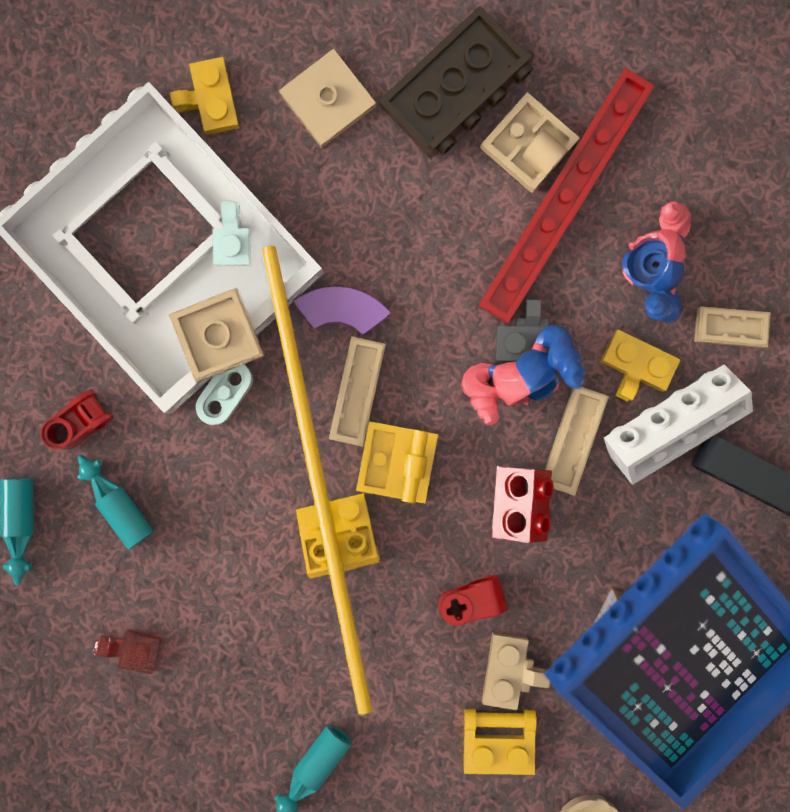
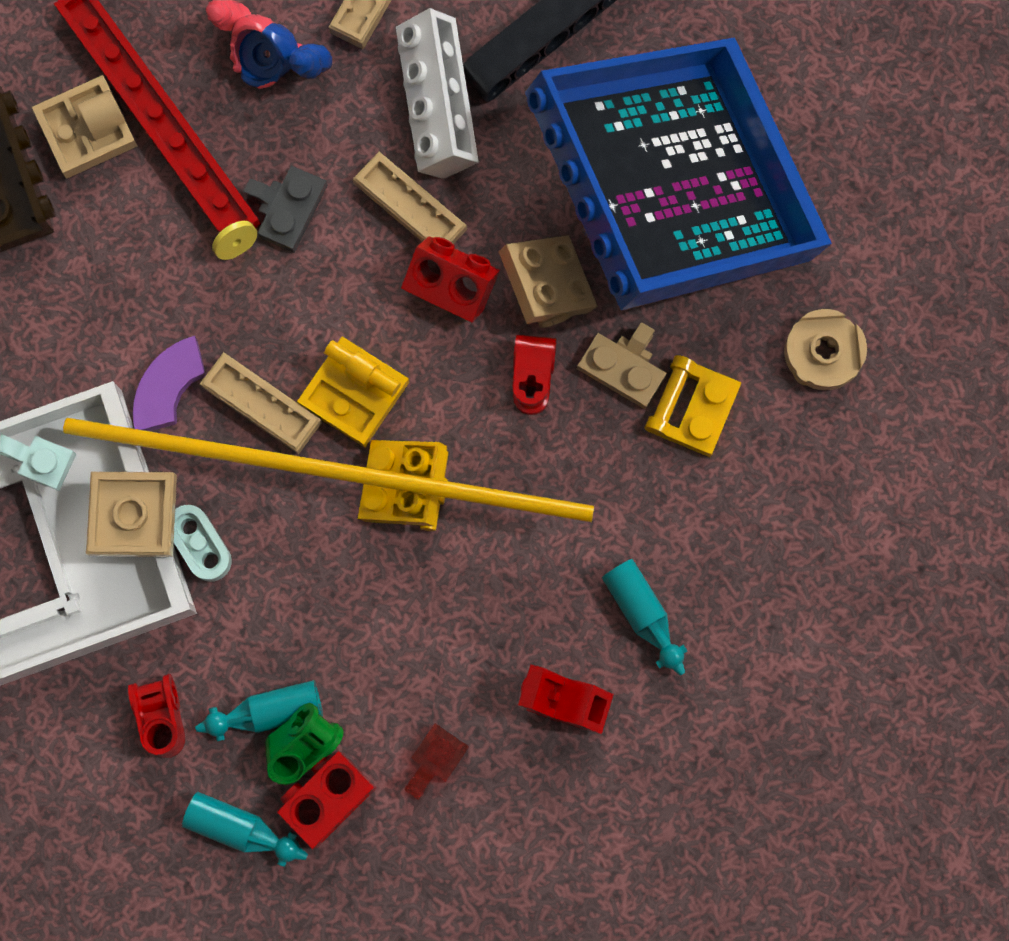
camera: 65 degrees left, 10 degrees down
(64, 590) = (333, 807): none -> red brick
(96, 546) = (300, 744): none -> green piece
(216, 738) = (565, 699): none -> red brick
(482, 311) = (234, 240): none -> light yellow wheel
(530, 377) = (323, 220): hair -> none
(555, 583) = (547, 280): none -> tan plate
(639, 364) = (361, 110): yellow plate -> none

